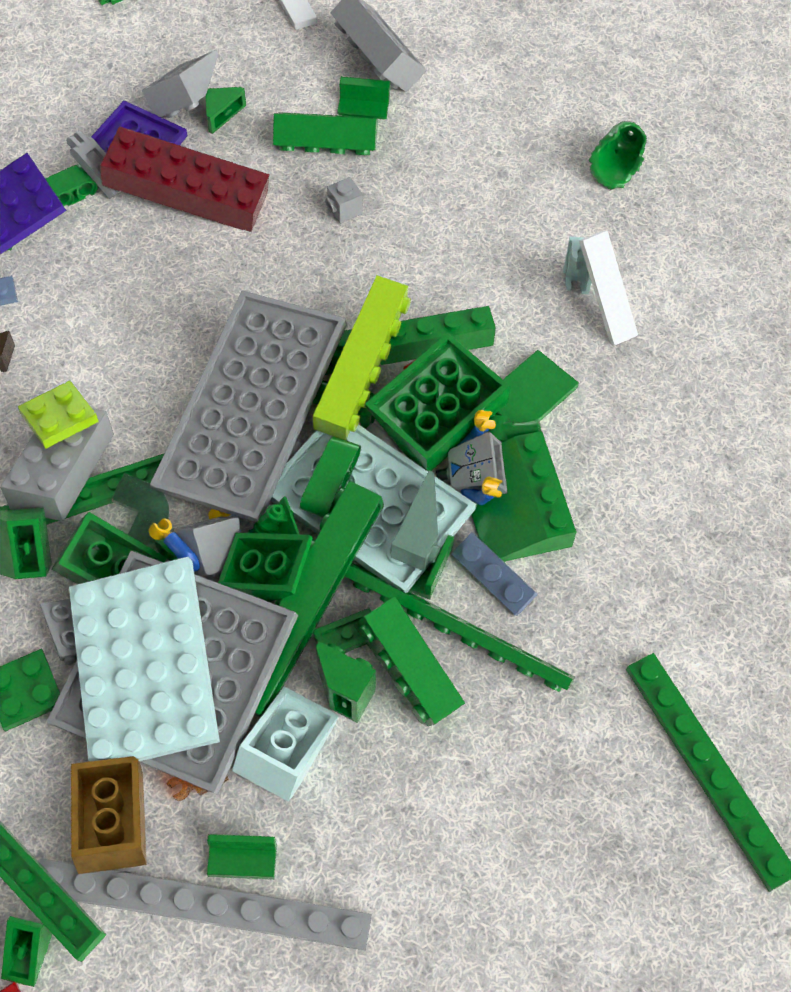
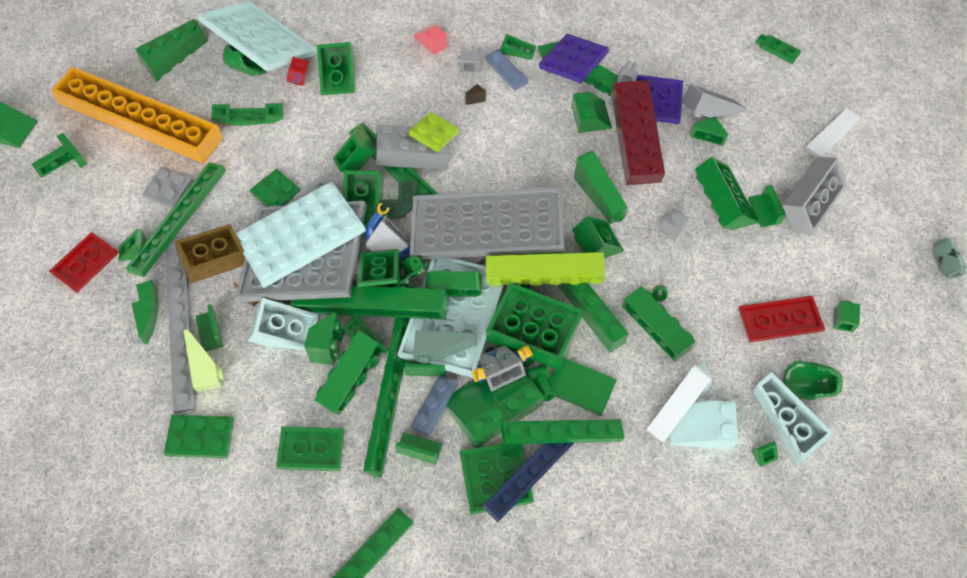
camera: 70 degrees right, 0 degrees up
(114, 226) = (590, 112): none -> green slope
(163, 952) = (146, 310): none -> green slope
(250, 256) = (599, 187): none -> green slope
(313, 879) = (203, 369): none -> yellowish green slope
(327, 292) = (596, 237): none -> green slope
(421, 919) = (199, 436): none -> green plate
(435, 252) = (660, 297): none -> green hinge
(479, 274) = (658, 323): none -> green brick
(501, 757) = (310, 448): none -> green plate
(520, 153) = (781, 319): none -> red tile
(547, 88) = (846, 316): none -> green brick
(550, 613) = (419, 448): none -> green panel
(593, 433) = (562, 431): none -> green plate
(623, 533) = (488, 470): none -> green plate
(638, 485) = (524, 479): none -> dark blue plate
(642, 274) = (707, 425): none -> light aqua slope
(658, 194) = (791, 418): none -> light aqua wedge
(685, 239) = (766, 453): none -> green slope

